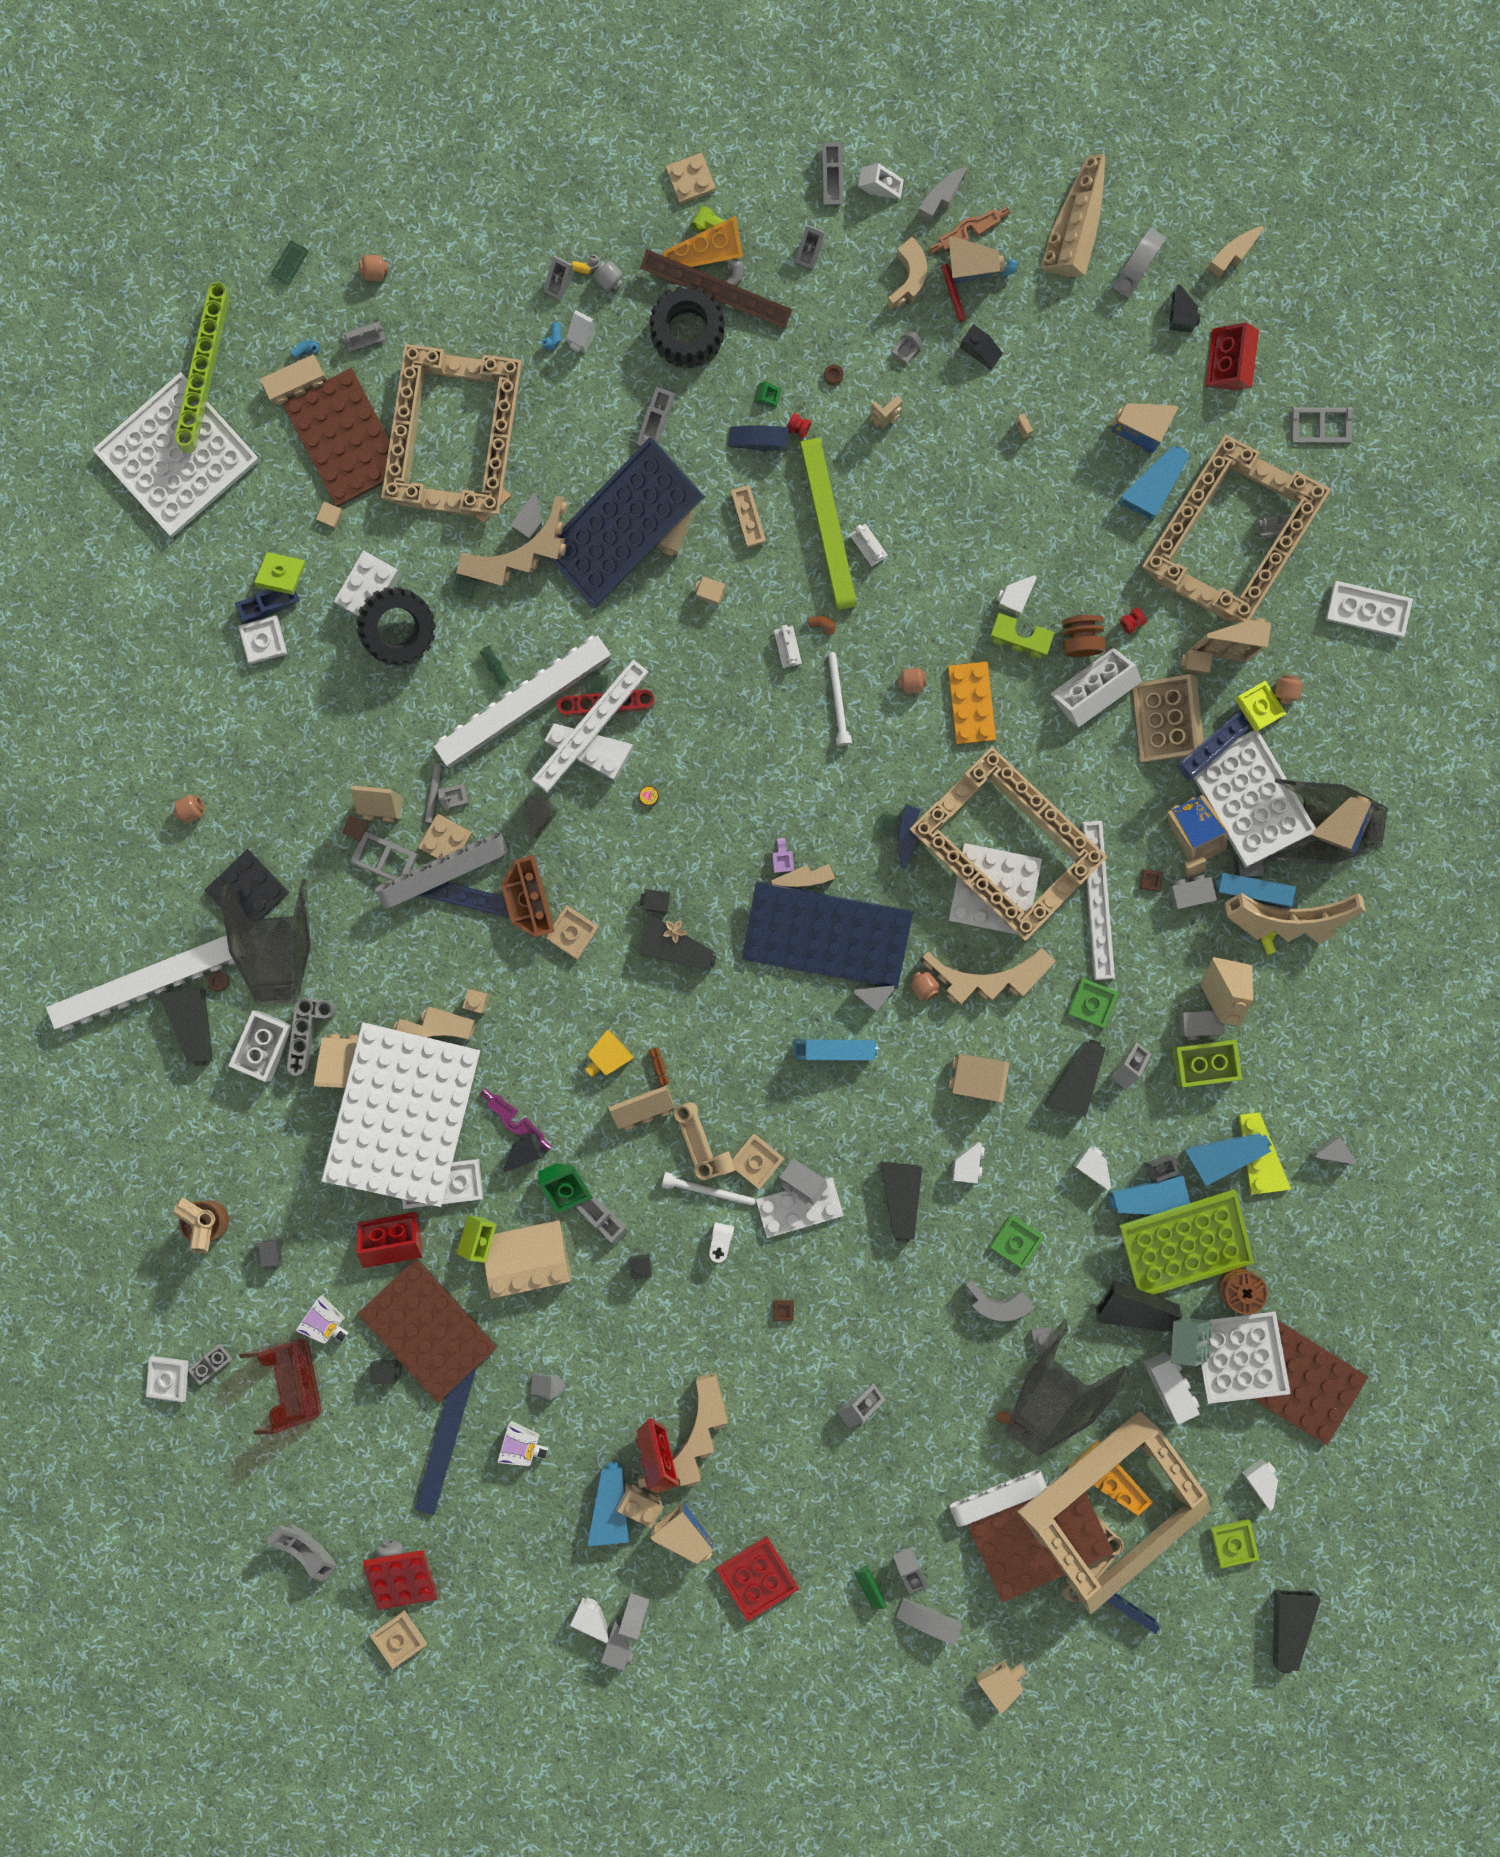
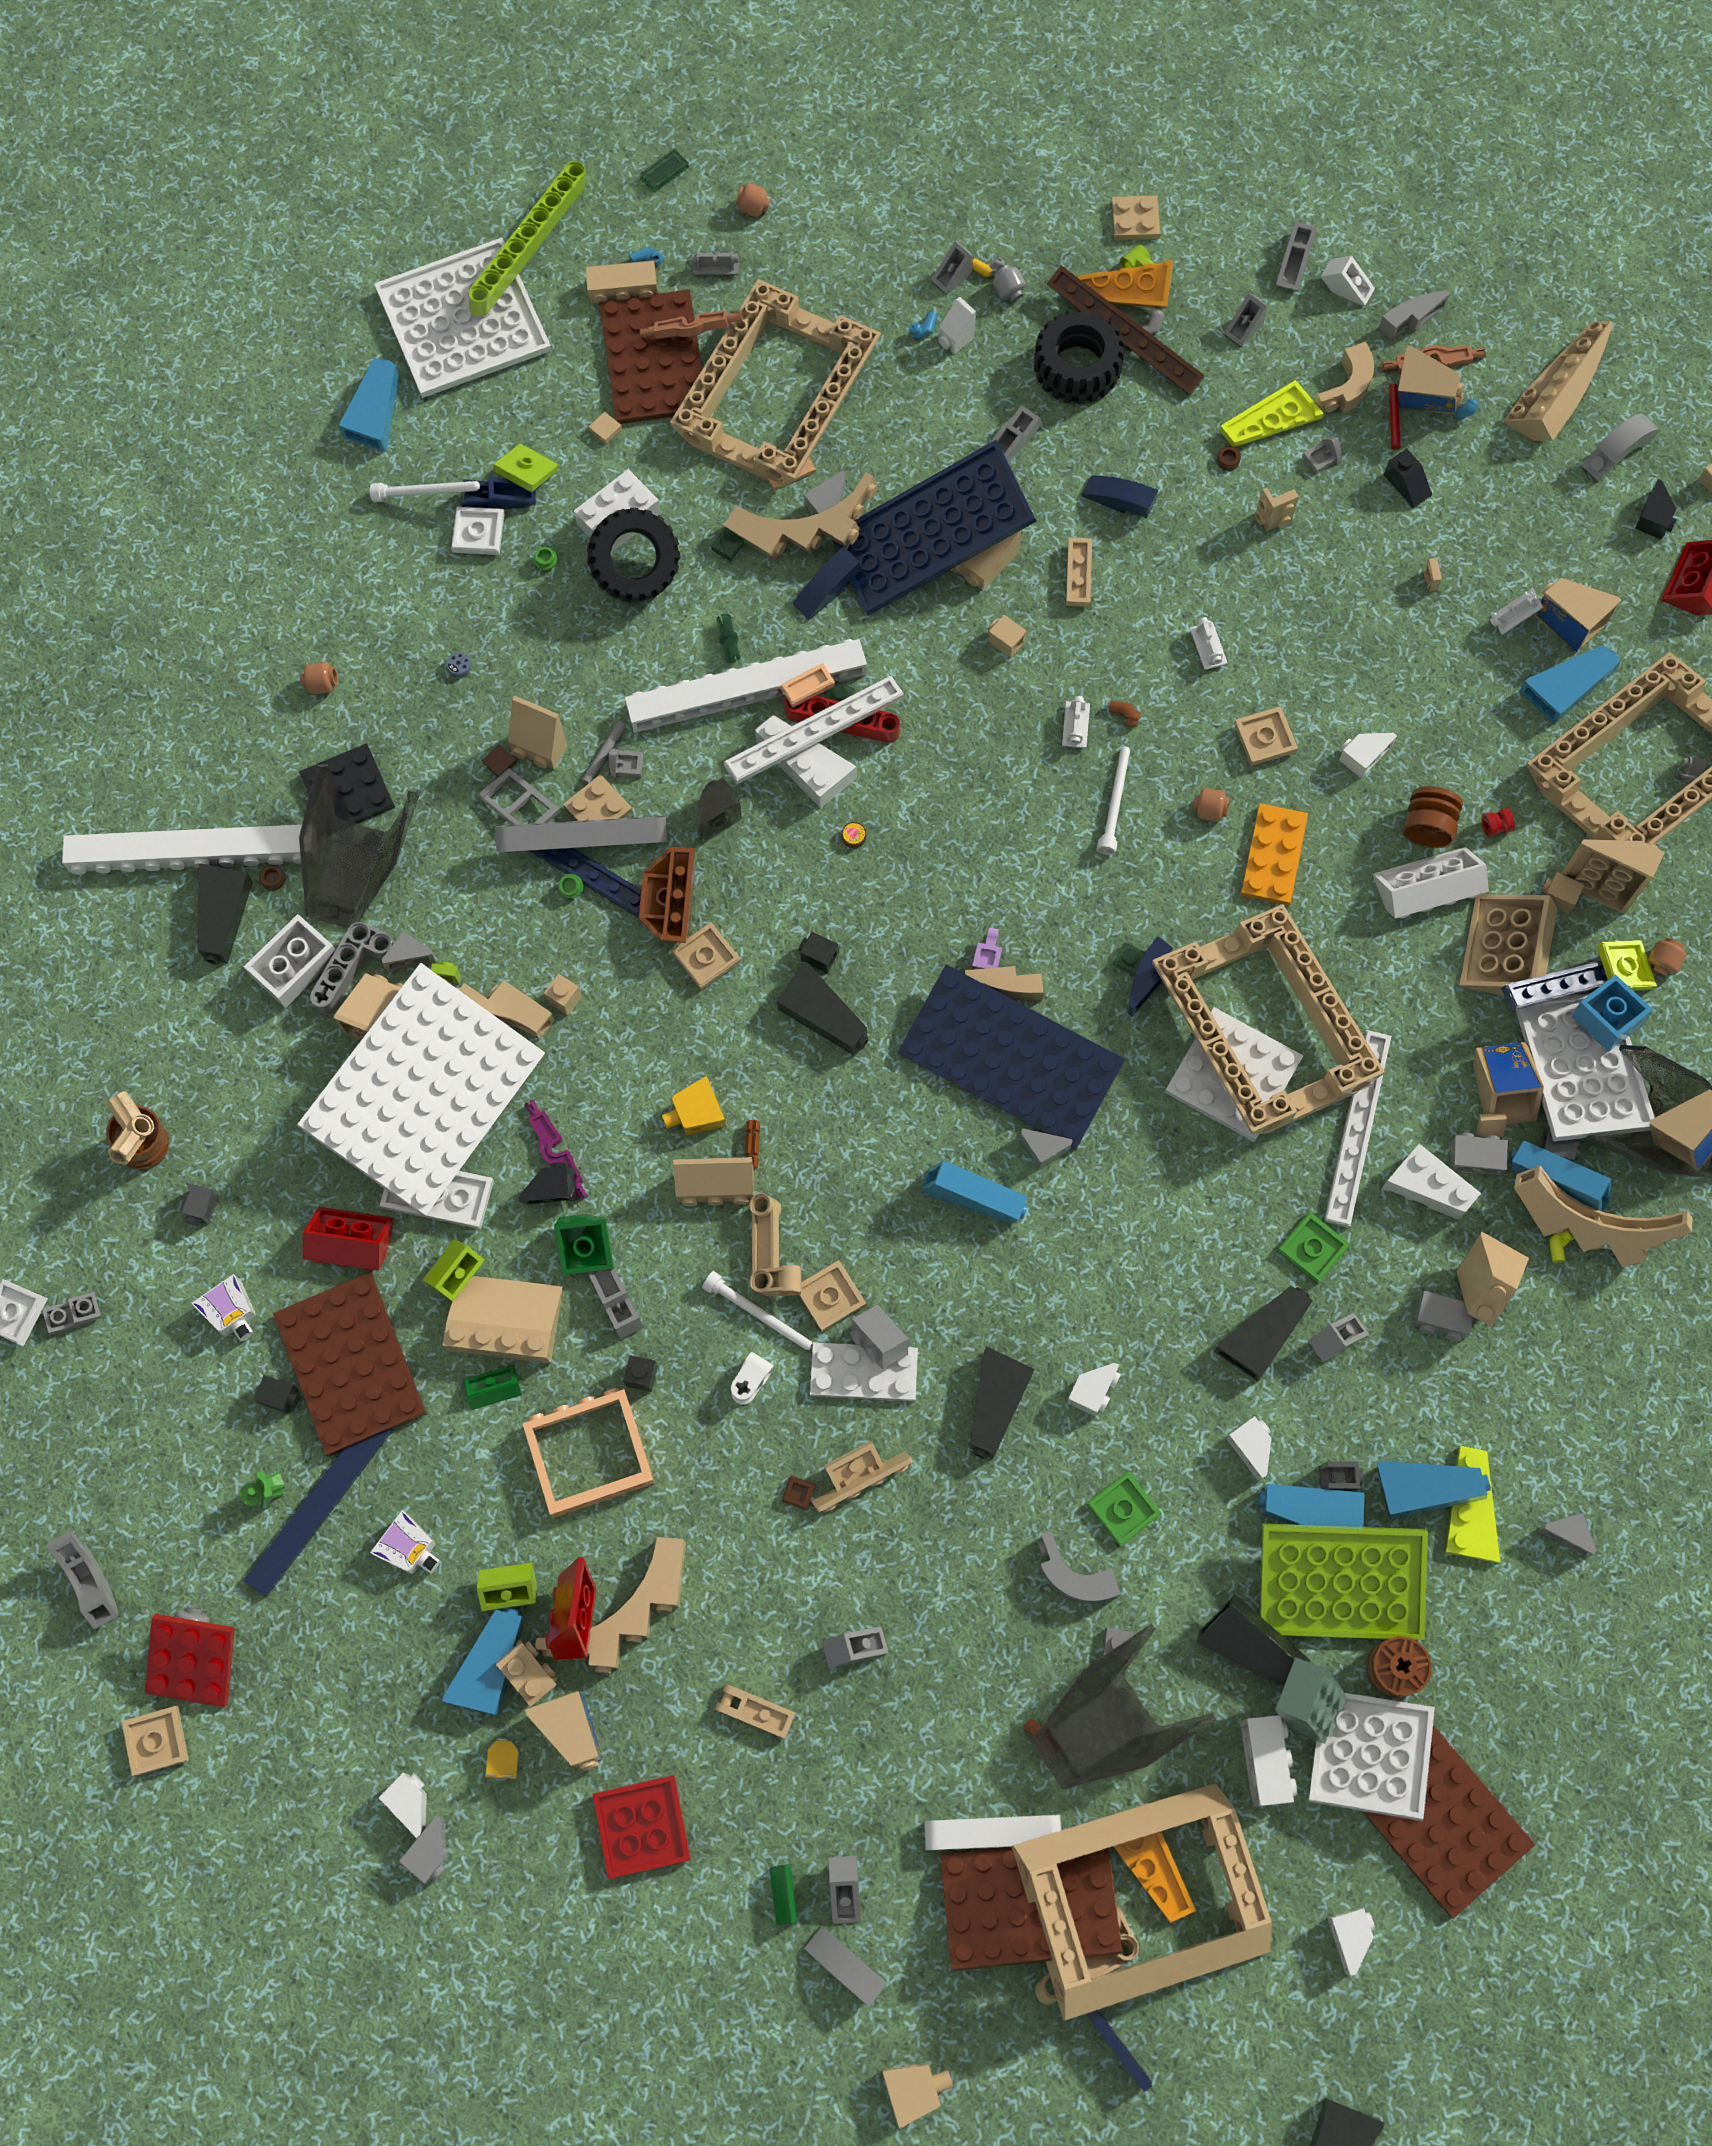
camera: 15 degrees right, 15 degrees down
(135, 559) = (372, 407): none -> dark azure slope
(172, 633) = (381, 492): none -> white piece
(292, 758) = (459, 664): none -> sand blue tile
(294, 1382) = (164, 1366): clear red windscreen -> none
(325, 646) = (545, 559): none -> bright green plate
(345, 1008) = (407, 953): none -> light grey slope
(374, 401) = (680, 327): none -> nougat piece
(381, 1012) = (447, 971): none -> lime plate
(397, 1450) = (264, 1488): none -> bright green hips
(449, 911) = (570, 886): none -> bright green plate
(536, 1310) = (492, 1387): none -> green slope
(546, 1385) = (469, 1481): light grey tile -> none
(555, 594) = (827, 583): none -> dark blue slope
(571, 689) = (807, 685): none -> light nougat tile
(603, 1451) = (507, 1586): none -> lime brick
(633, 1617) = (463, 1817): light grey slope -> none
(643, 1362) = (601, 1493): none -> light nougat window
(645, 1568) = (502, 1760): none -> yellow piece
(674, 930) = (829, 988): tan plant -> none
(767, 394) = (1146, 455): green slope -> none
(799, 425) = (1170, 496): red wheel -> none
(807, 1473) = (756, 1711): none -> tan plate
(820, 1283) = (857, 1471): none -> tan bracket
(828, 523) = (1169, 609): lime beam -> none
(859, 323) = (1272, 415): none -> neon yellow wing
(924, 986) = (1110, 1156): nougat head -> none
(936, 607) = (1265, 736): none -> tan plate
(979, 1077) = (1141, 1284): tan slope -> none
(1004, 633) = (1371, 811): lime arch -> none
(1019, 978) = (1229, 1184): tan arch -> none
(1098, 437) = (1516, 611): none -> white hinge
(1150, 880) = (1430, 1125): reddish brown tile -> none
(1164, 927) = (1432, 1183): none -> white wedge
(1207, 1063) = (1436, 1363): lime brick -> none
(1234, 1543) = (1289, 2010): lime plate -> none
(1261, 753) = (1612, 1013): none -> dark azure brick

